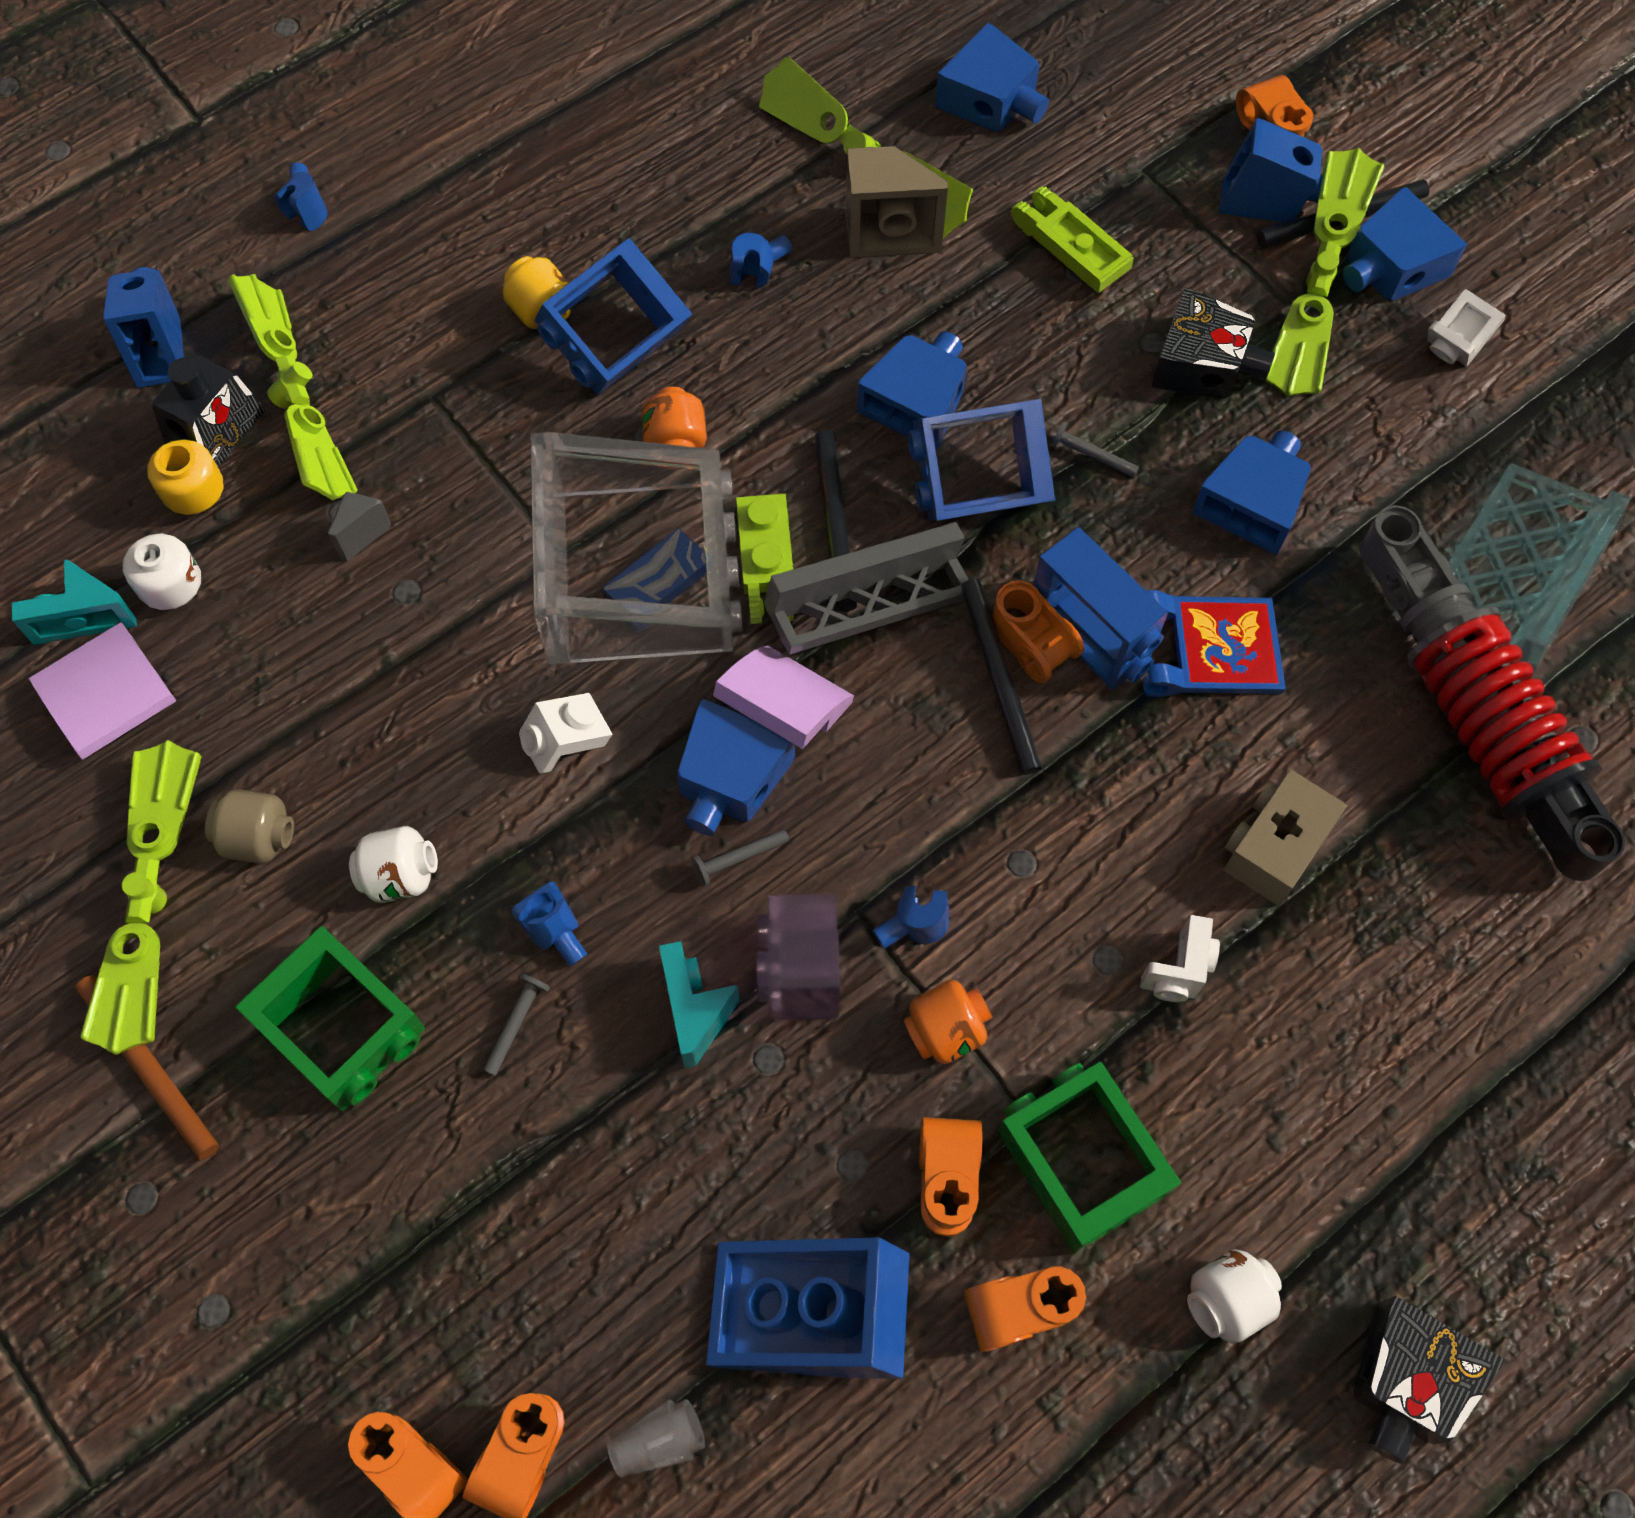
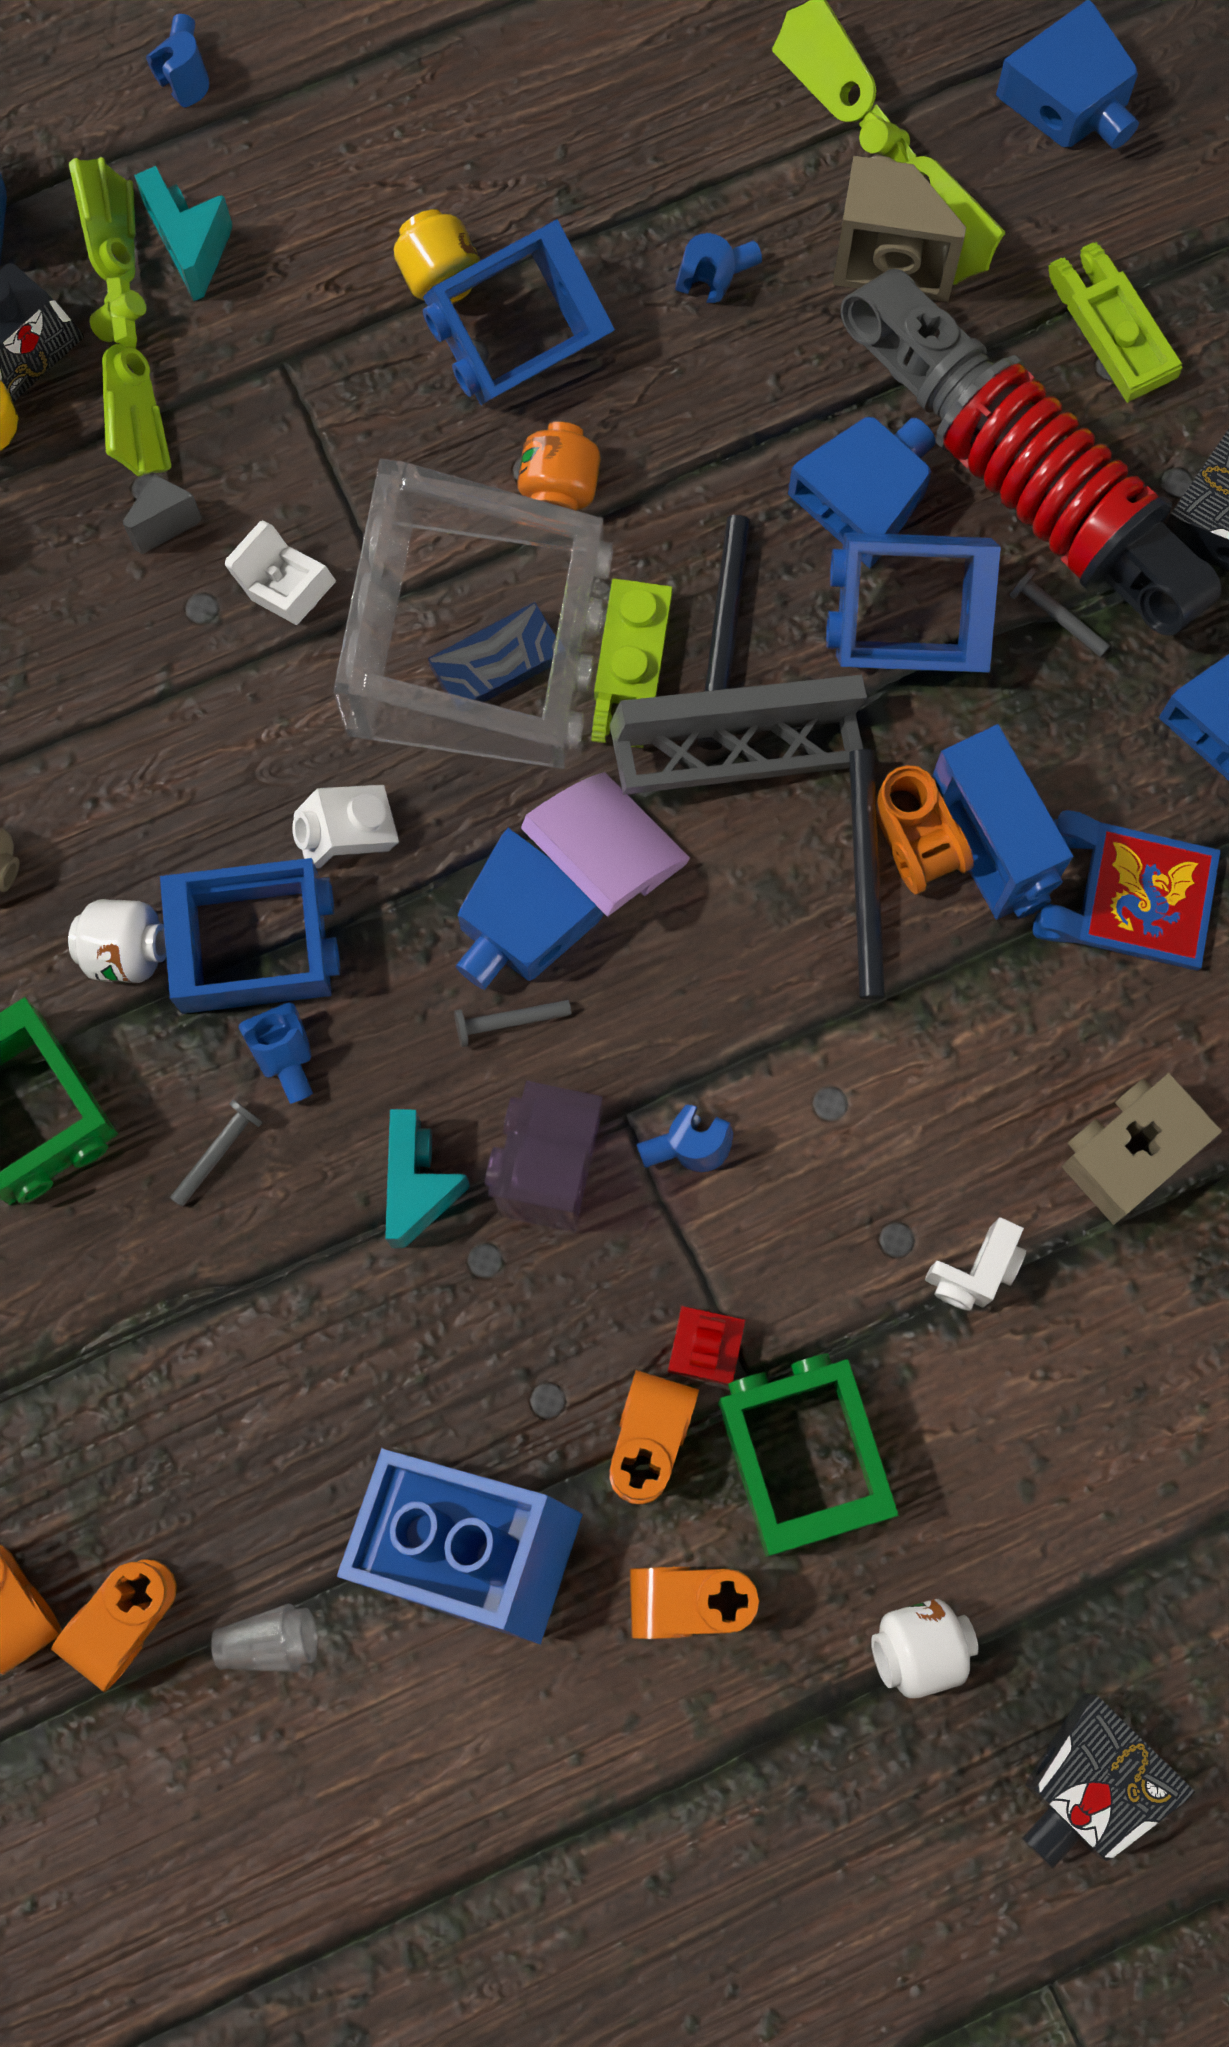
camera: 15 degrees right, 10 degrees up
(335, 316) = (192, 235): none -> teal slope
(462, 550) = (278, 574): none -> white bracket
(488, 795) = (186, 891): none -> blue window
(948, 1021) = (692, 1270): orange head -> none
(975, 1085) = (706, 1346): none -> red tile
(1043, 338) = (1033, 455): none -> piece

